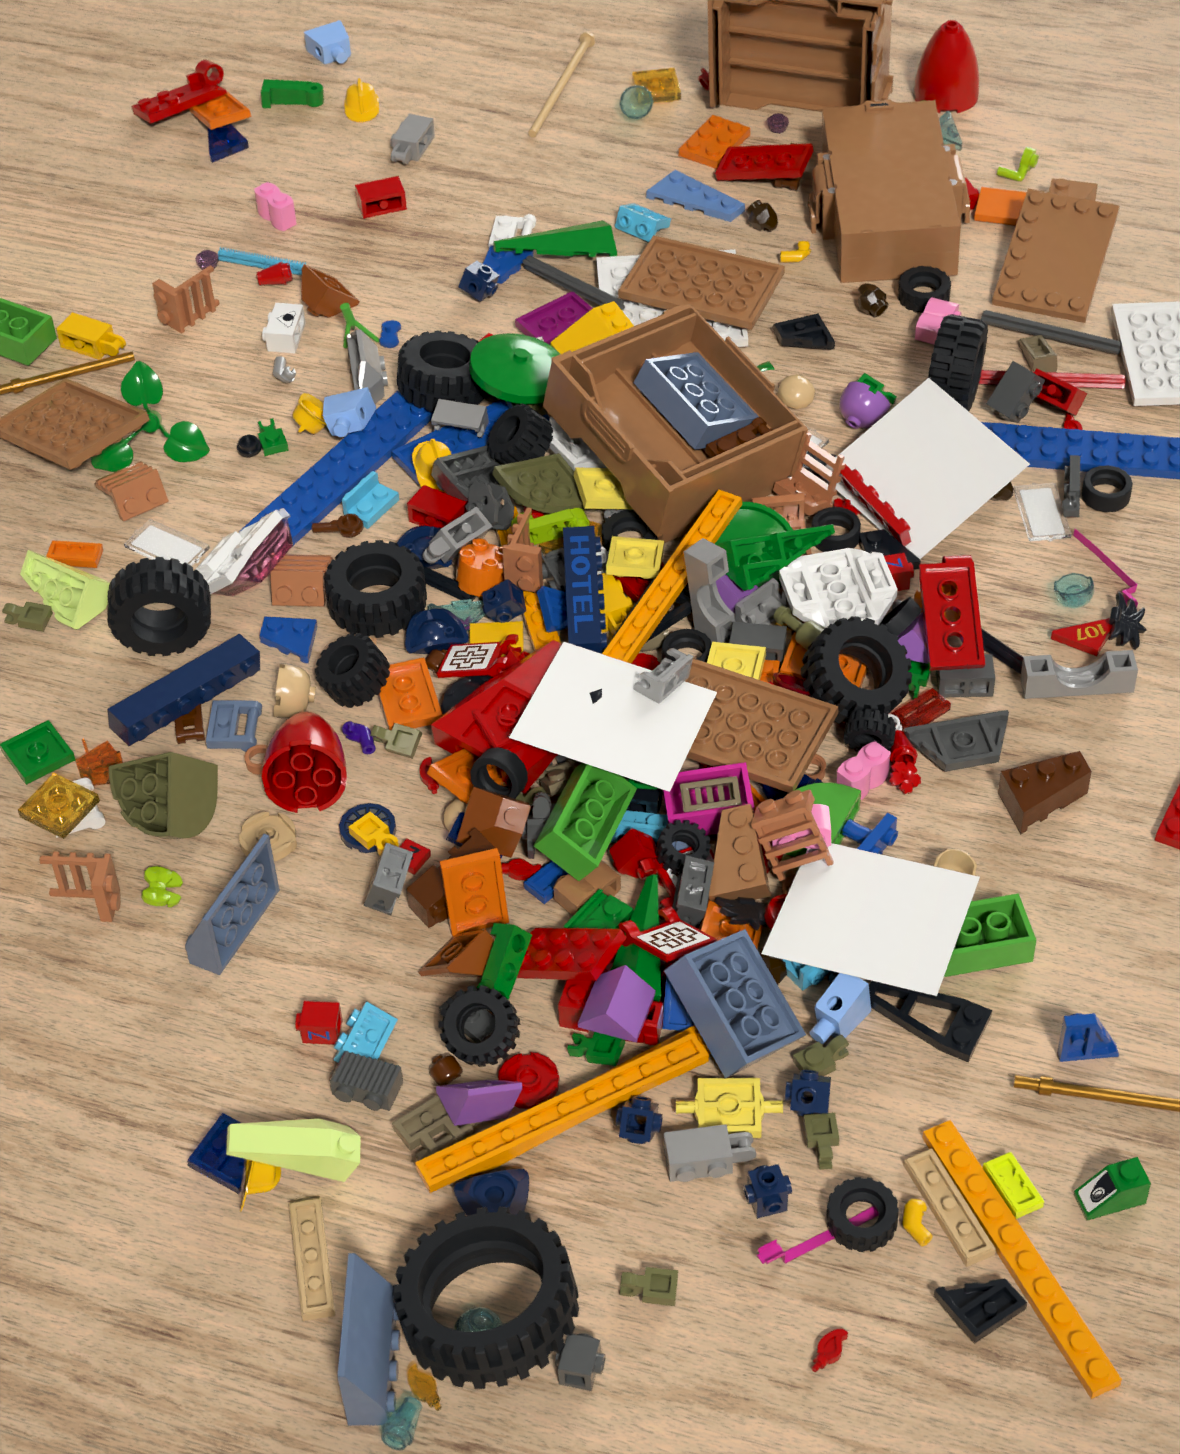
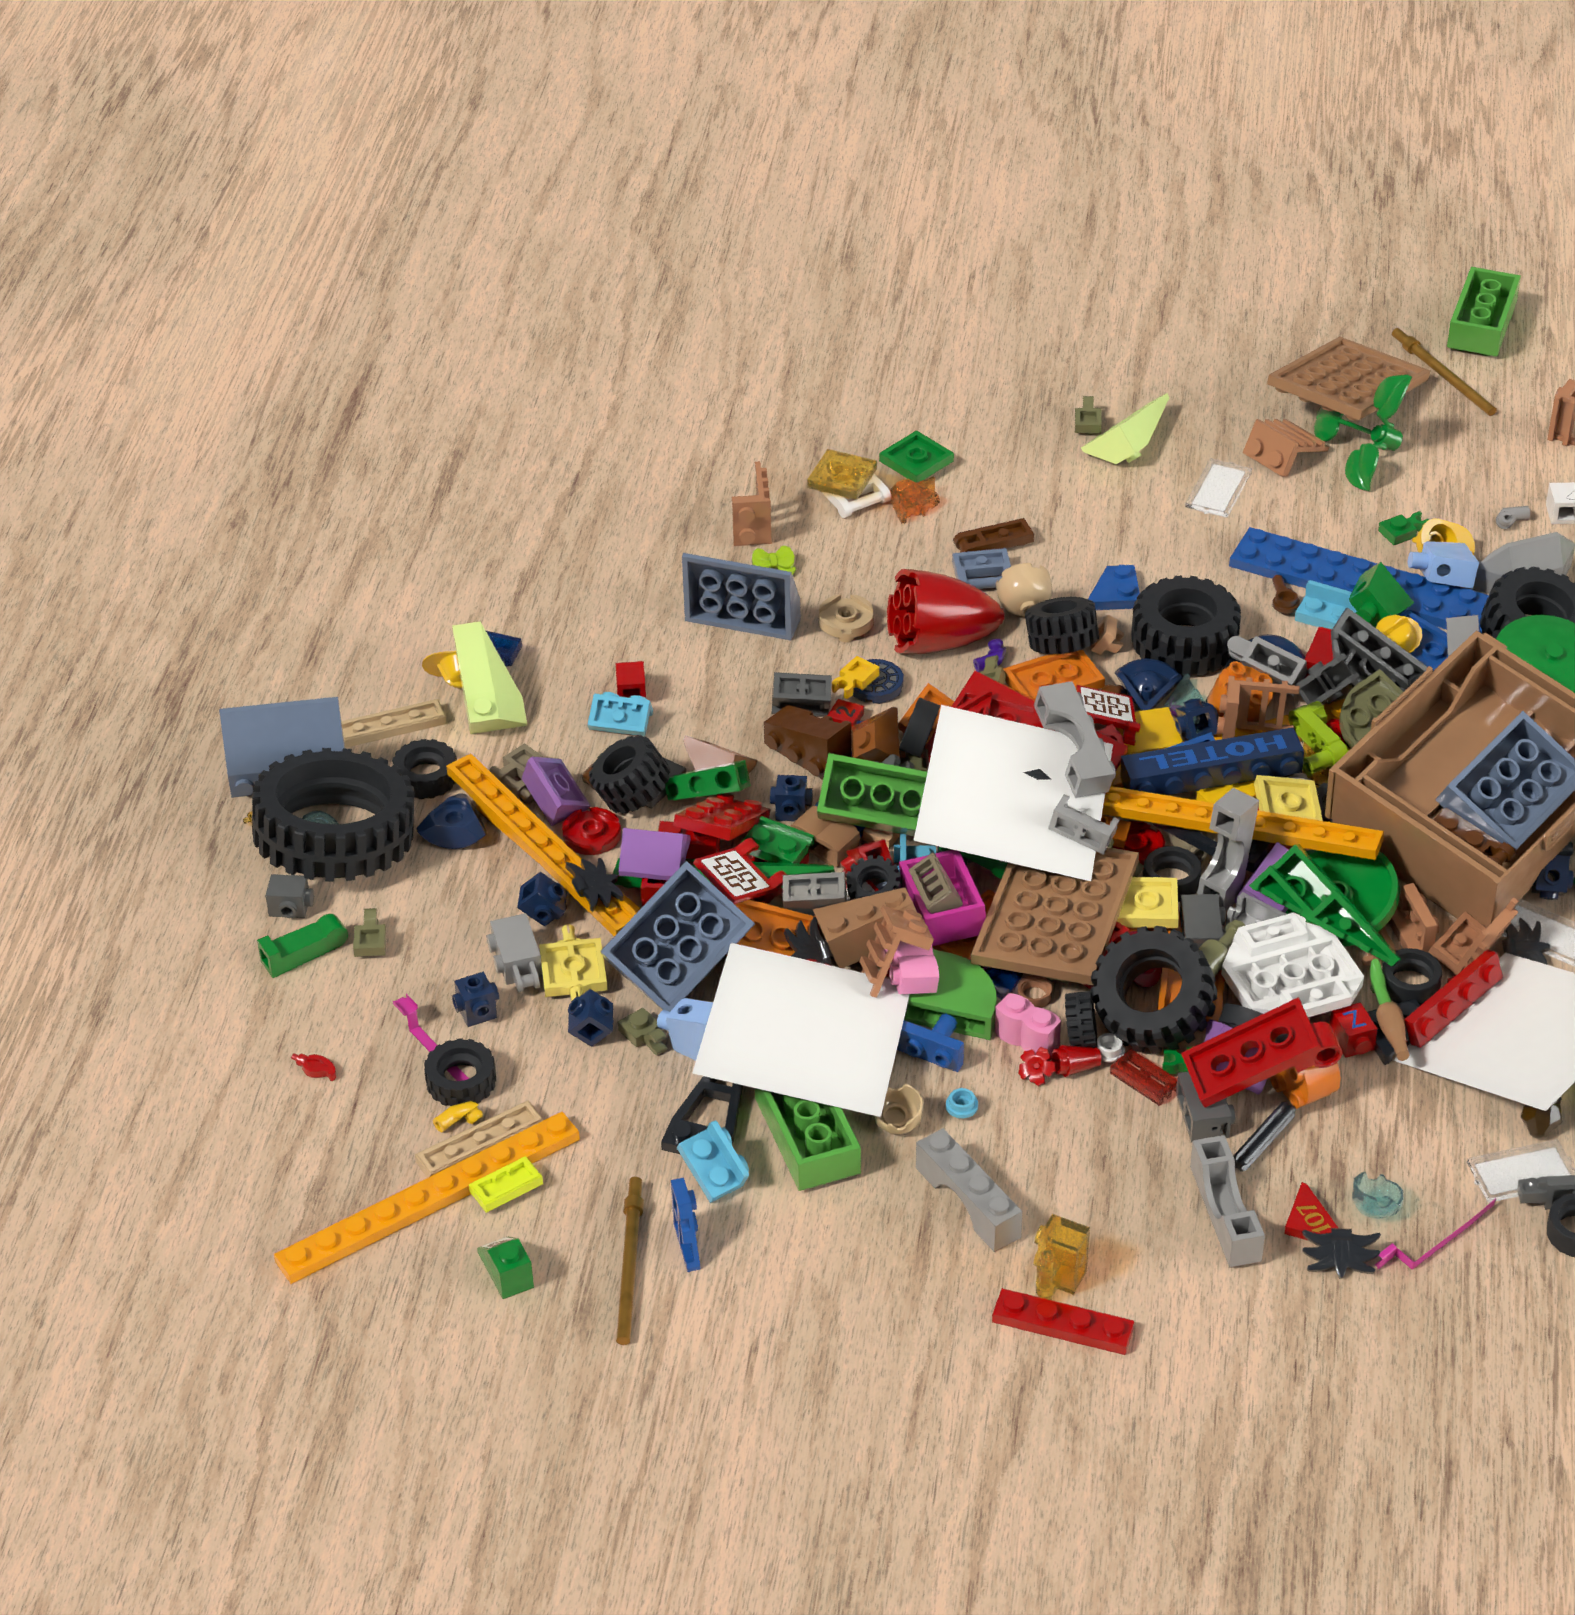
camera: 80 degrees right, 5 degrees down
(76, 553) = (1181, 428): orange plate -> none
(89, 336) = (1503, 372): yellow brick -> none
(157, 630) = (1091, 473): black tyre -> none
(166, 794) = (867, 540): olive brick -> none
(183, 689) = (1006, 521): dark blue brick -> none
(247, 556) = (1192, 523): piece -> none
(249, 446) = (1380, 511): black plate -> none
(300, 580) = (1186, 563): nougat plate -> none
(366, 1081) = (568, 722): dark grey brick -> none
(393, 1199) = (421, 753): none -> black tyre
(394, 461) = (1378, 595): none -> green torso
(401, 1426) = (225, 798): clear light blue cone -> none
(474, 891) = (780, 737): orange plate -> none
(531, 905) = (791, 791): none -> dark blue brick
(601, 655) = (1063, 710): none -> light grey arch
(643, 1063) = (594, 882): none -> black piece
(655, 1353) = (301, 945): none -> green leg
(822, 1133) = (549, 1035): olive plate -> none
(891, 543) = (1388, 1013): none -> medium nougat piece
(942, 833) = (962, 1103): none -> medium azure plate
(961, 741) = (1104, 1113): dark grey wing -> none
(981, 1307) = (363, 1167): black wing -> none
(1006, 1011) = (714, 1162): none -> medium azure bracket
(1022, 847) = (990, 1209): none -> light grey arch
(1042, 787) = (1039, 1177): reddish brown wedge -> none
(1142, 784) = (1060, 1256): none -> clear yellow brick

